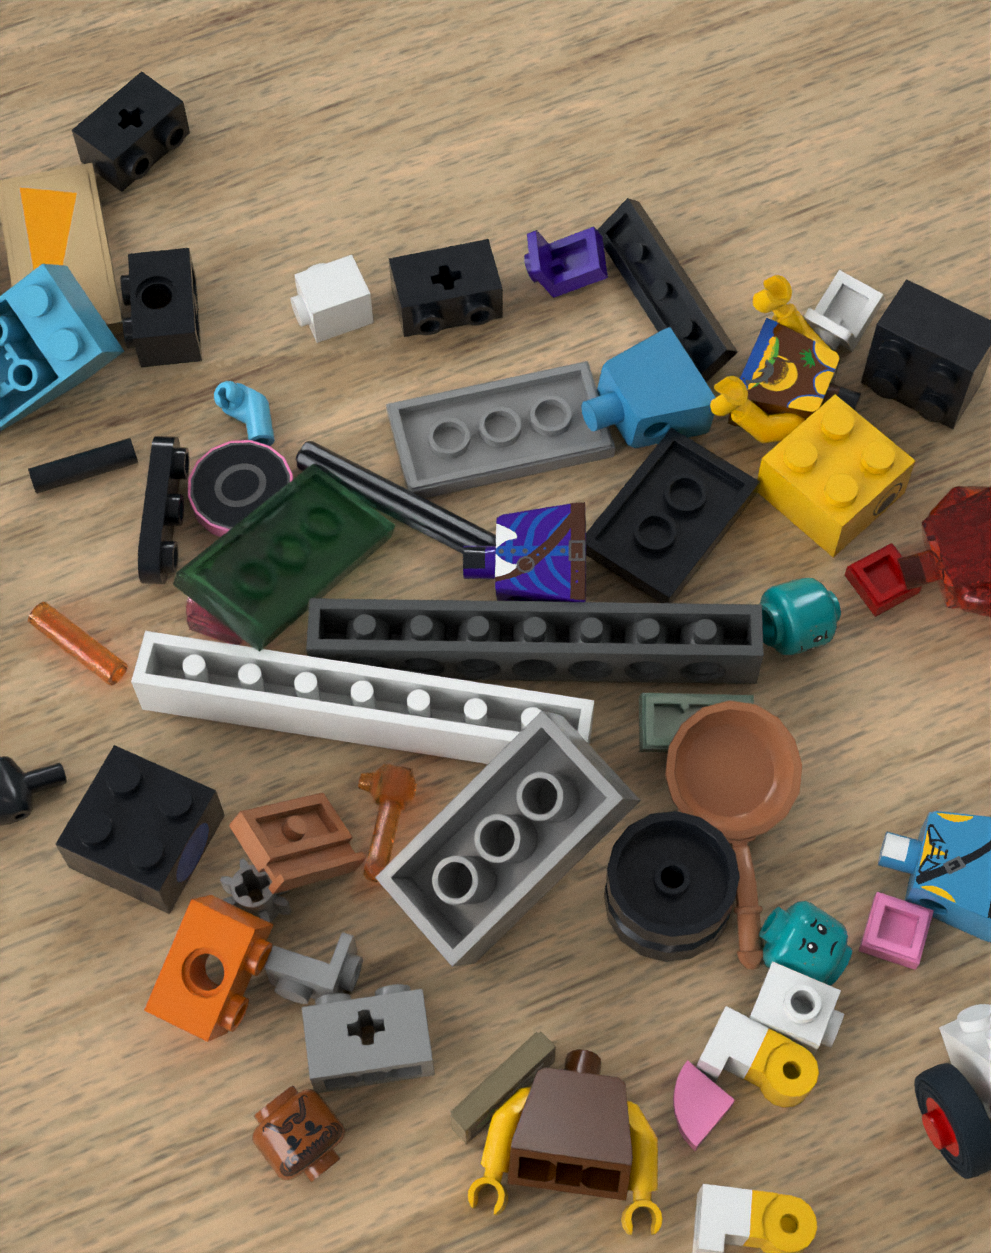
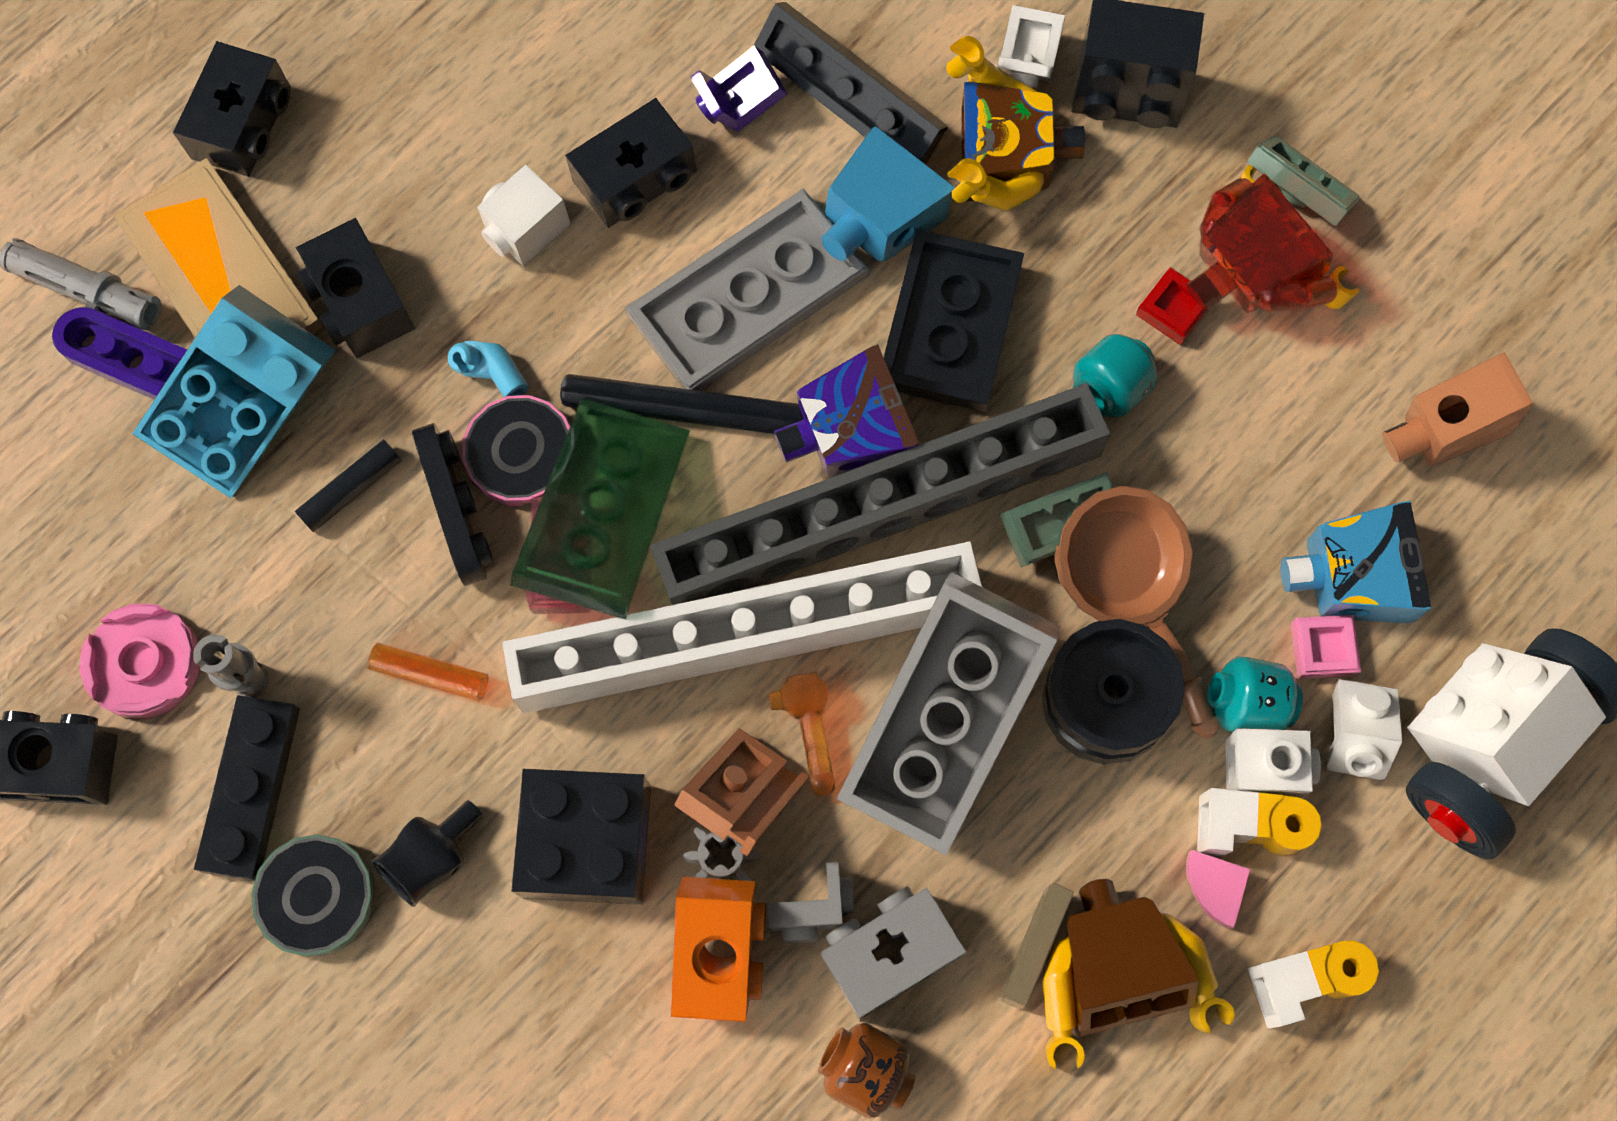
camera: 20 degrees left, 10 degrees up
(834, 475) = (1091, 219): yellow brick -> none
(898, 1018) = (1364, 729): none -> white bracket

